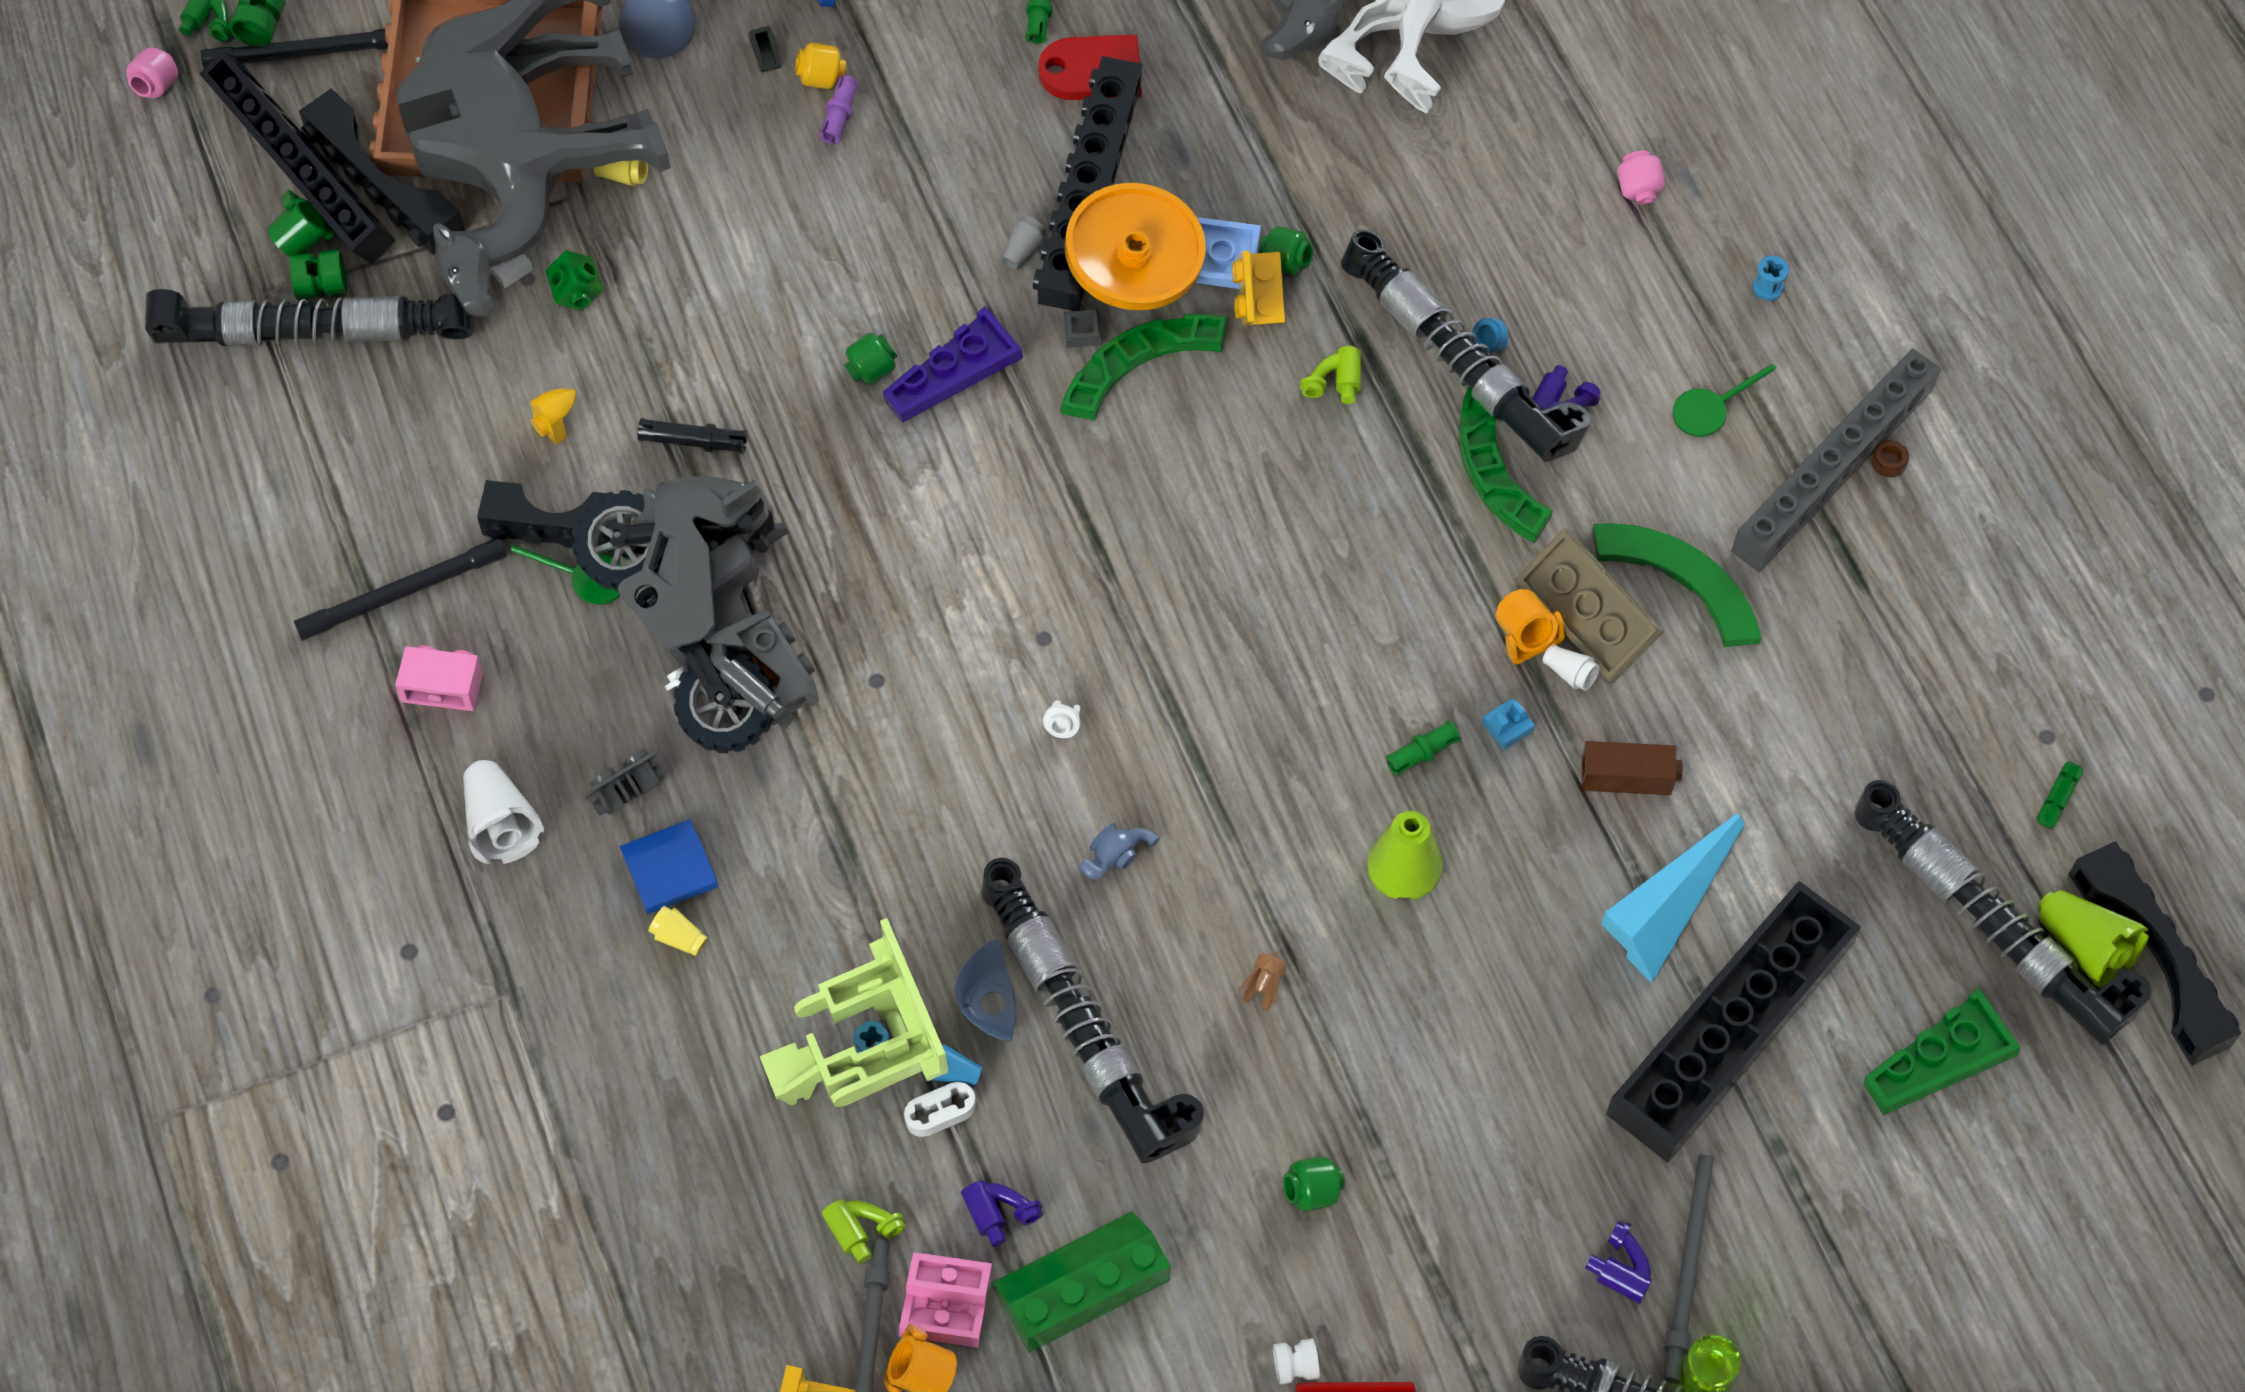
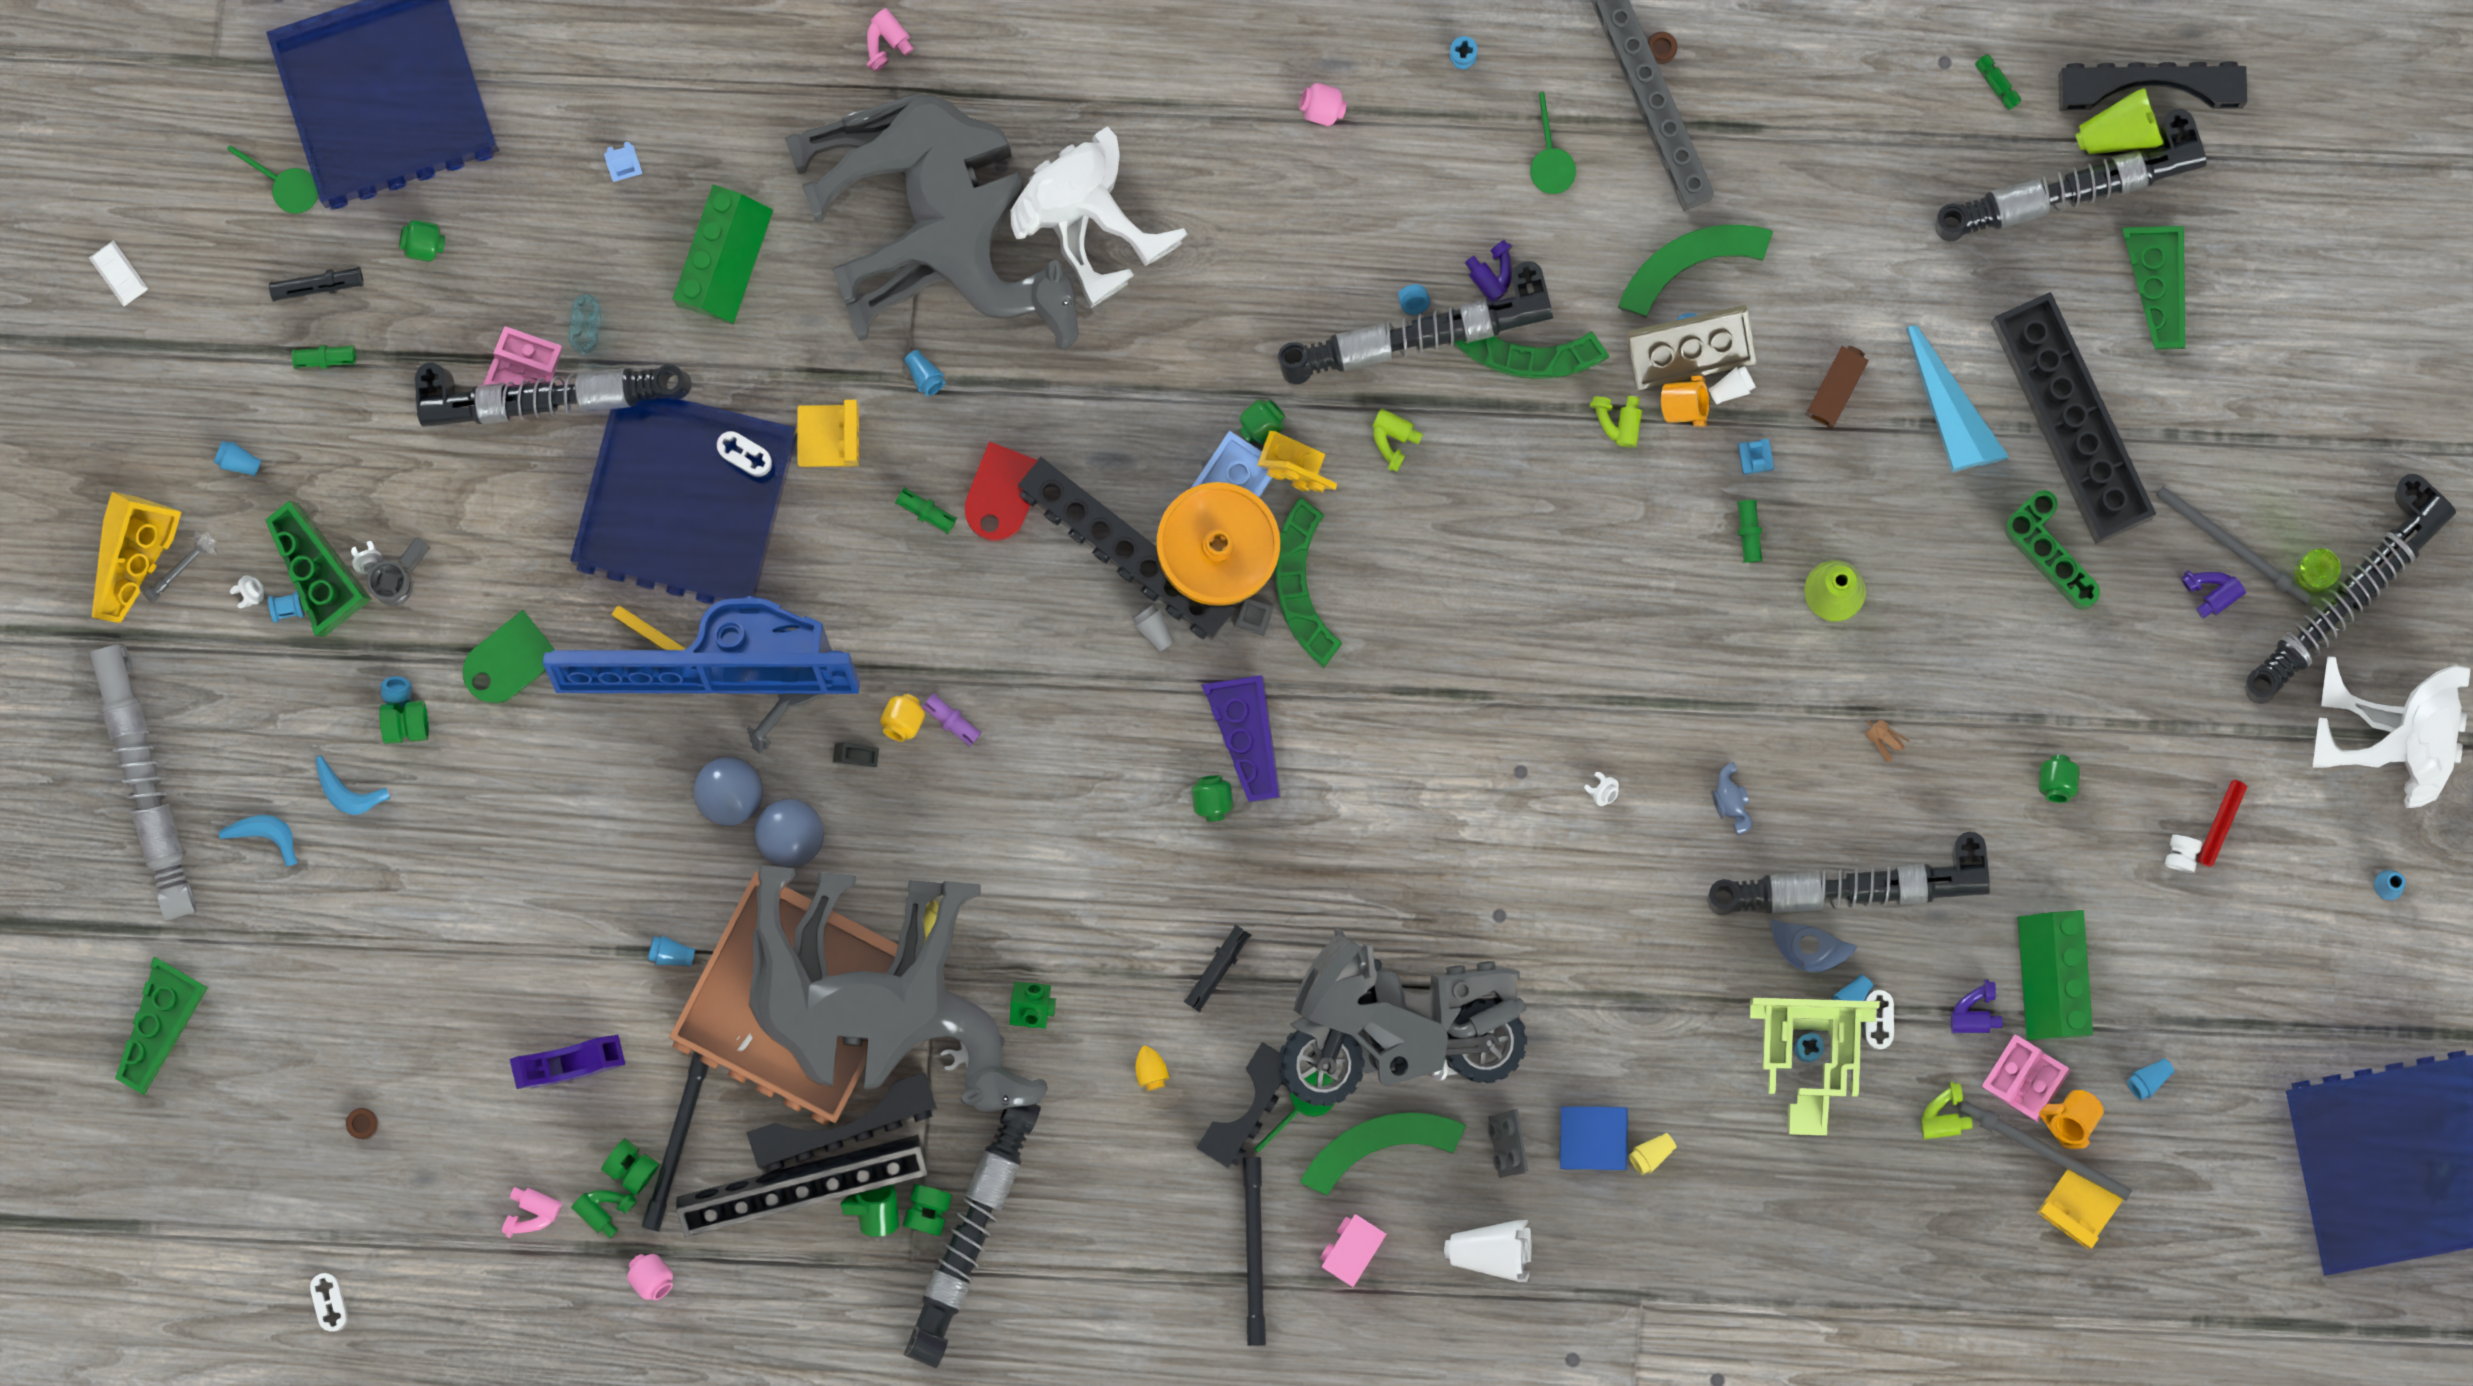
camera: 60 degrees left, 20 degrees up
(574, 651) = (1377, 1135): none -> green tile
(1476, 584) = (1629, 422): none -> lime plant
(1566, 1071) = (2057, 554): none -> green beam

